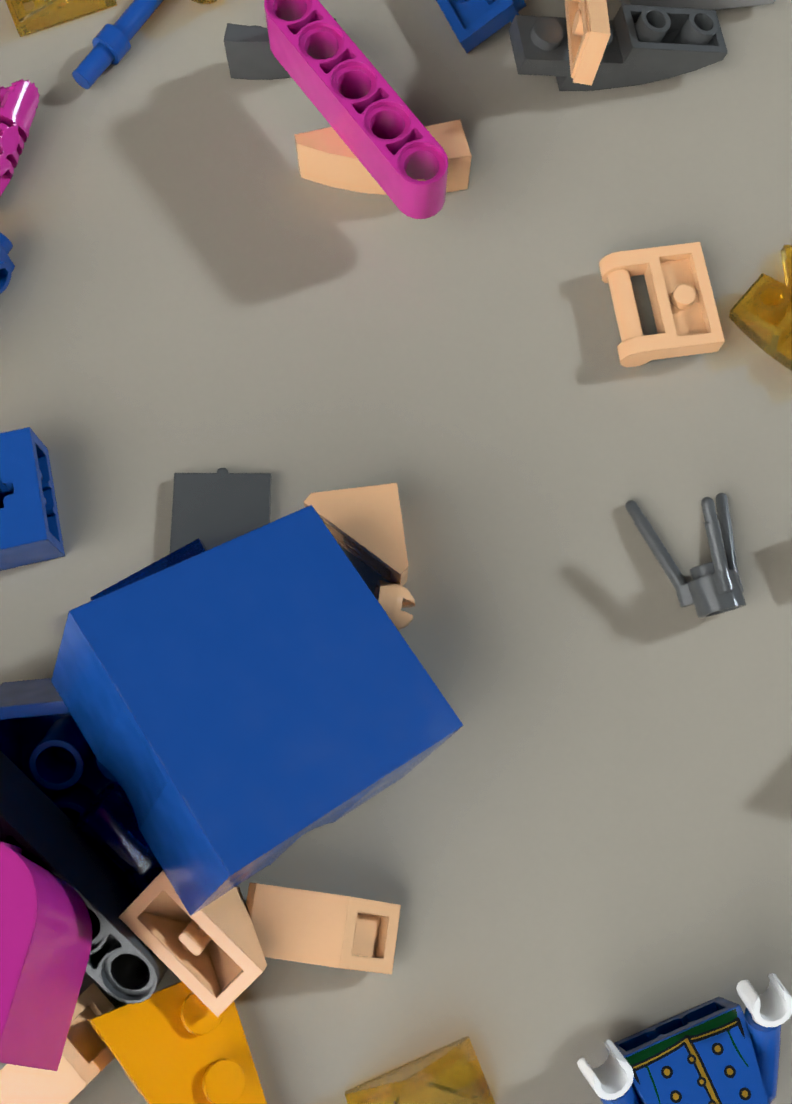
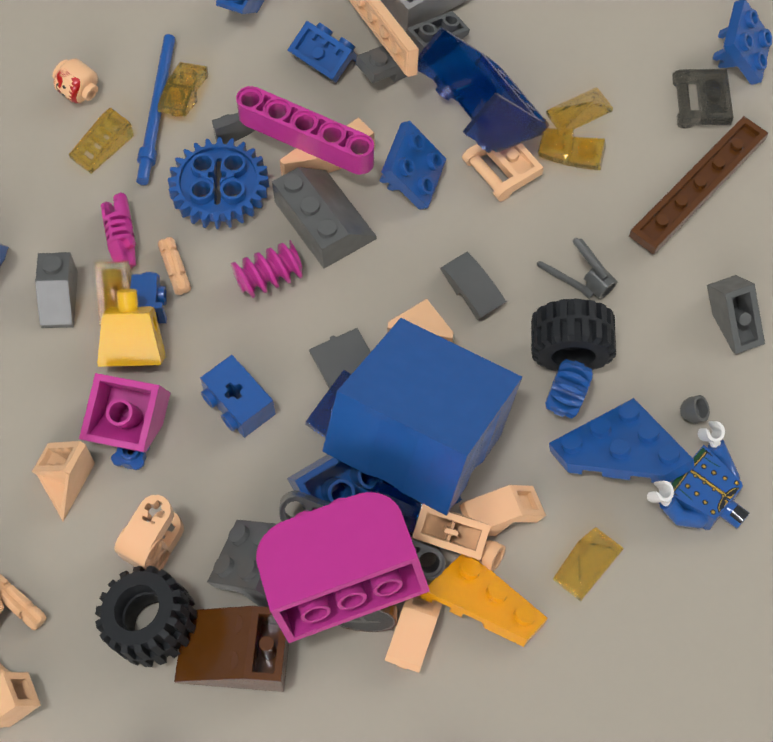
camera: 25 degrees left, 10 degrees down
(49, 237) = (174, 266): none -> light nougat axle
(177, 312) = (267, 269): none -> dark pink piece
(188, 132) = (247, 182): none -> blue gear
(260, 998) = (492, 554): none -> light nougat hinge
(320, 255) = (321, 214): none -> dark grey slope
(496, 491) = (473, 284): none -> dark grey slope
(506, 239) = (413, 165): none -> blue plate
(553, 766) = (569, 388): none -> blue gear
(597, 925) = (622, 446): none -> blue plate
(611, 676) = (573, 332): none -> black tyre
(700, 180) = (485, 91): none -> clear blue windscreen
(761, 911) = (695, 409): none -> dark grey hinge

